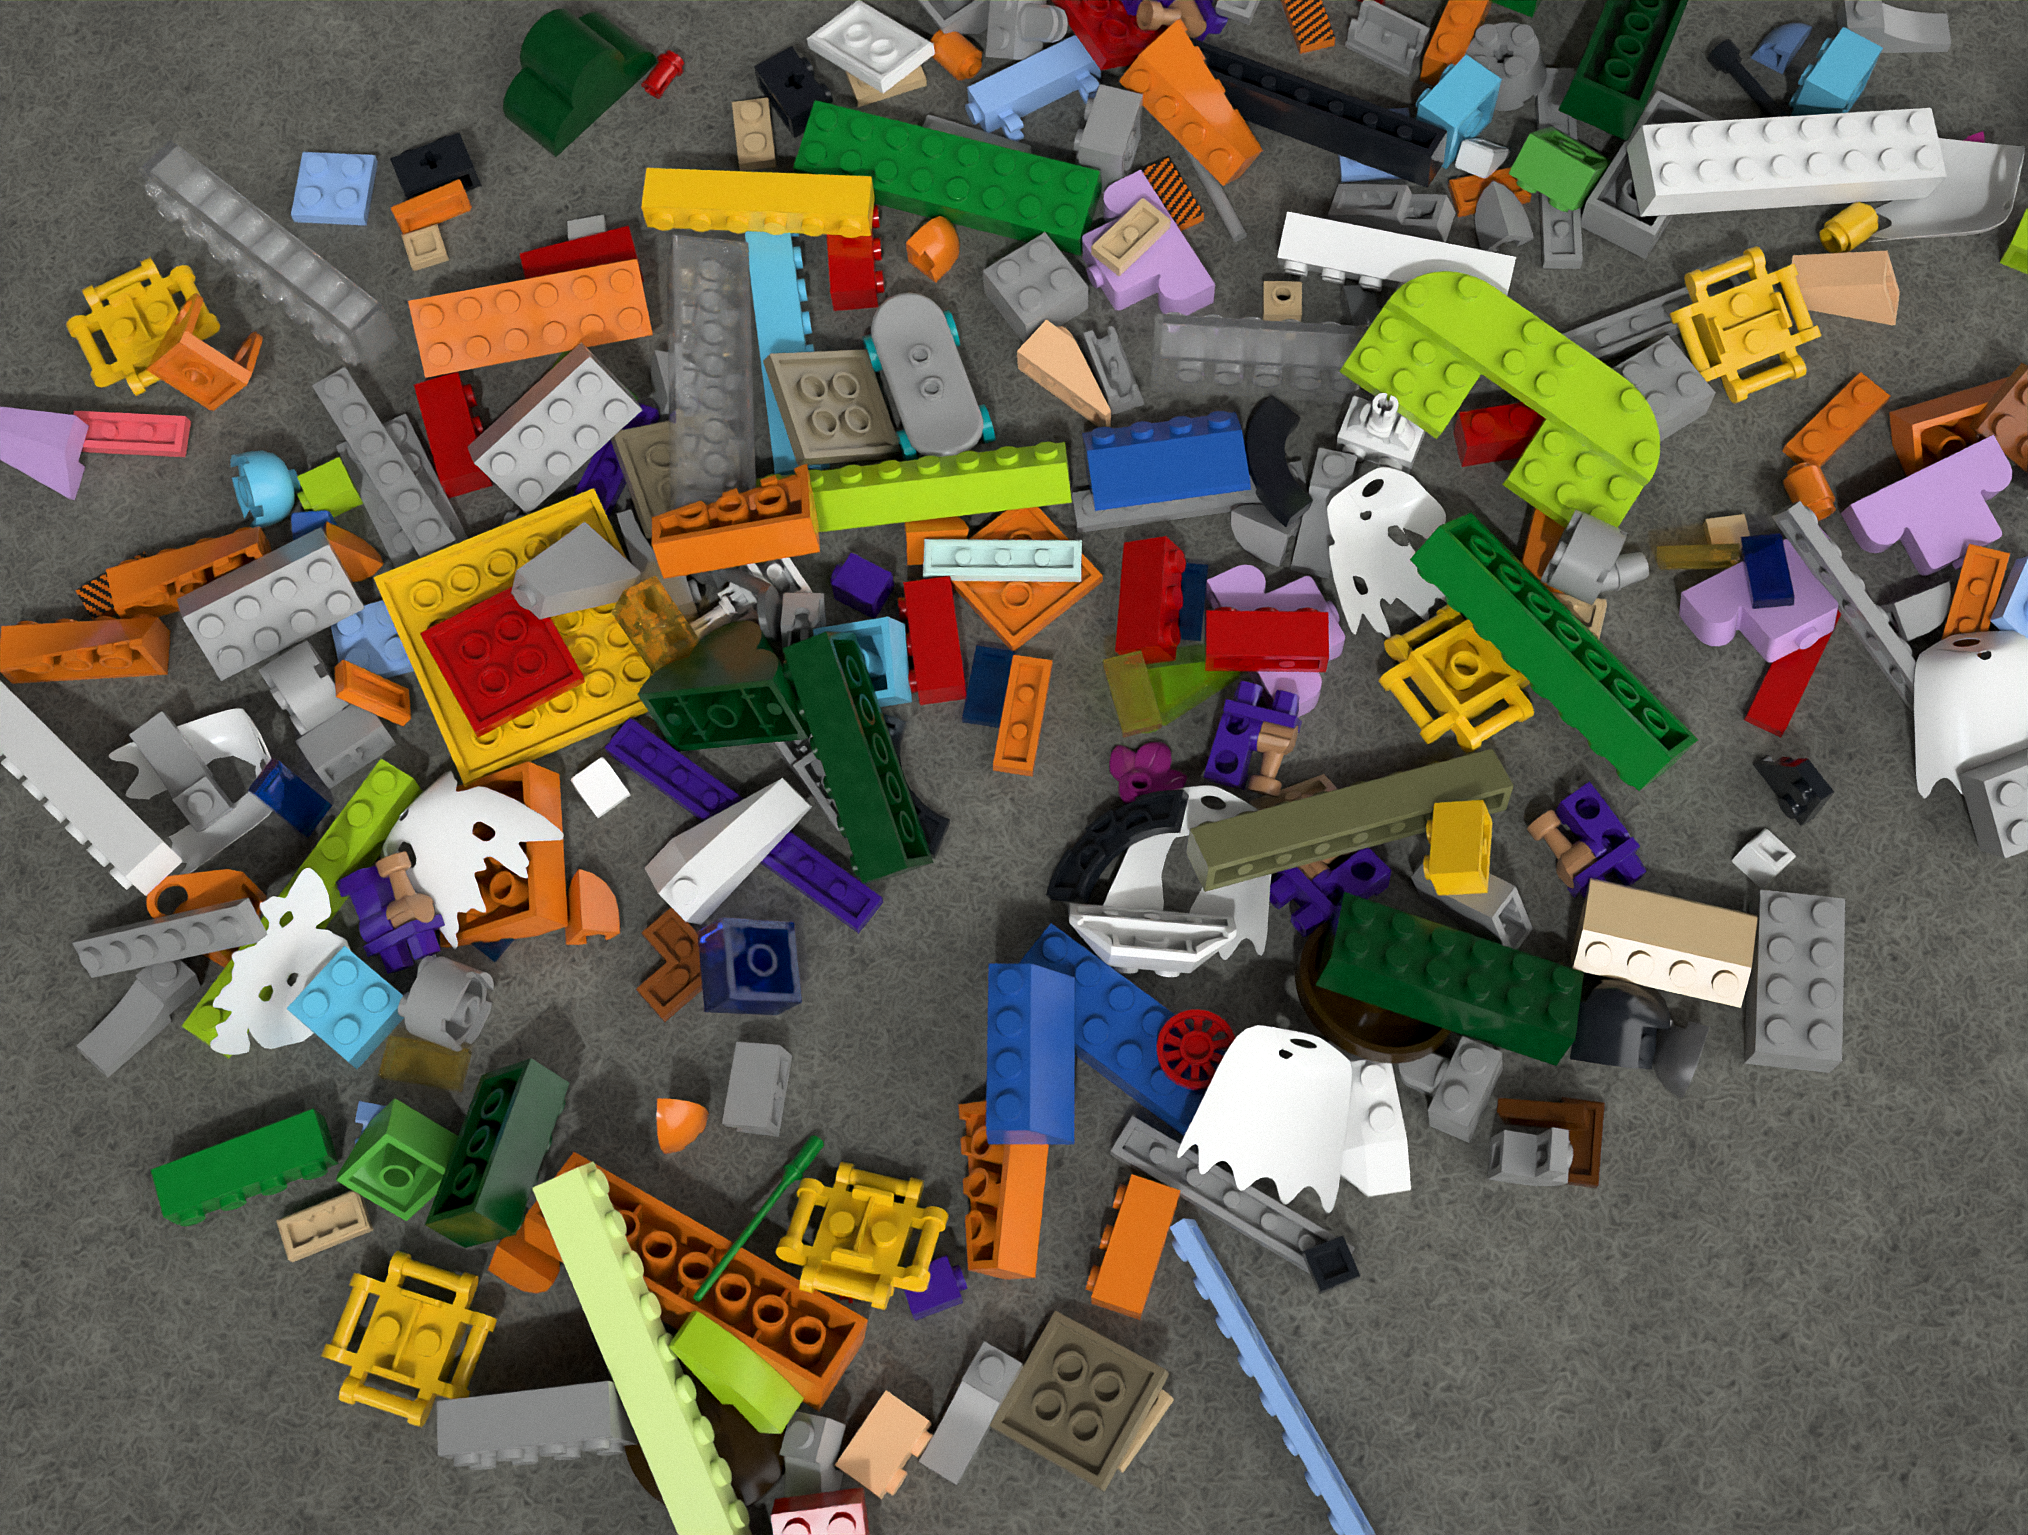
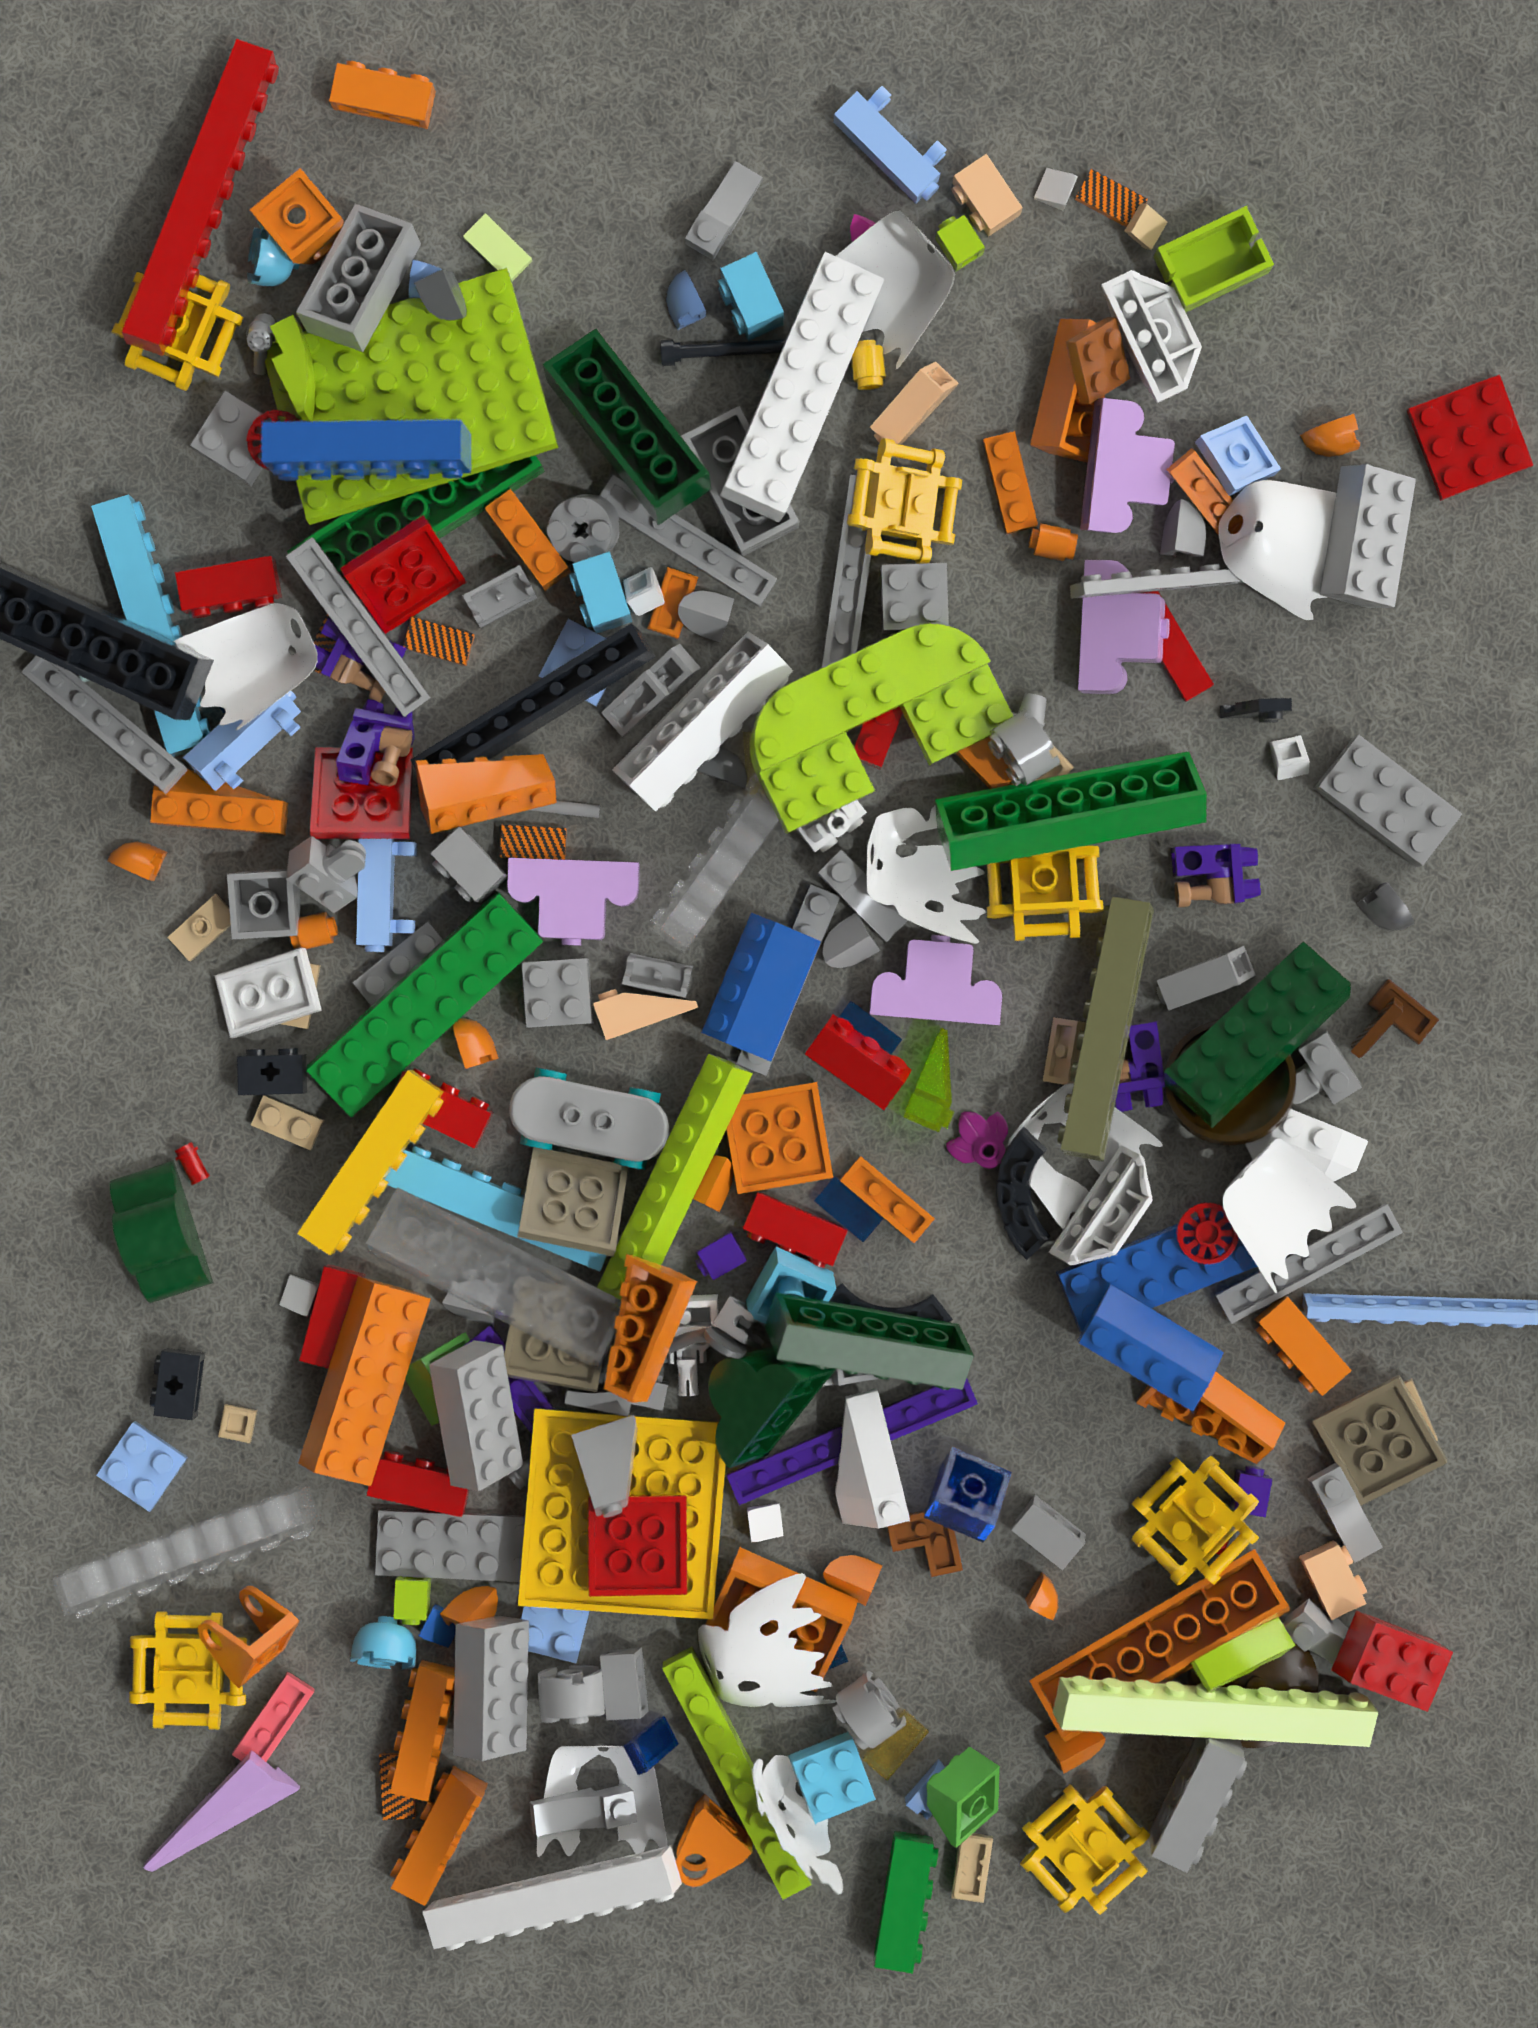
camera: 60 degrees left, 20 degrees up
(139, 1015) = (748, 1923): light grey slope -> none
(170, 938) = (724, 1881): light grey plate -> none
(372, 692) = (604, 1648): orange tile -> none
(384, 463) = (419, 1549): light grey plate -> none
(392, 913) = (783, 1717): dark purple hips -> none
(432, 207) = (210, 1403): orange tile -> none
(498, 1154) = (1004, 1732): dark green brick -> none
(654, 624) = (678, 1425): clear yellow brick -> none
(792, 1172) = (1121, 1541): green piece -> none
(1003, 560) = (765, 1147): light aqua tile -> none
(1130, 237) = (567, 903): tan plate -> none
(1132, 694) = (926, 1120): clear yellow tile -> none
(1249, 729) = (1001, 1049): dark purple hips -> none
(1266, 640) = (946, 1005): red brick -> none
(1268, 463) = (802, 913): black tile -> none
(1282, 300) = (678, 831): tan plate -> none
(1331, 1264) = (1391, 1228): black tile -> none
(1459, 848) = (1176, 972): yellow brick -> none
(1530, 1158) = (1399, 1054): light grey brick -> none
(1559, 168) = (698, 546): bright green slope -> none
(1620, 1025) = (1350, 938): black brick -> none
(1665, 942) = (1314, 873): tan slope -> none
(1698, 556) = (1057, 657): clear yellow tile -> none
(1726, 529) = (1049, 620): tan tile -> none
(1767, 571) = (1102, 623): clear blue tile -> none

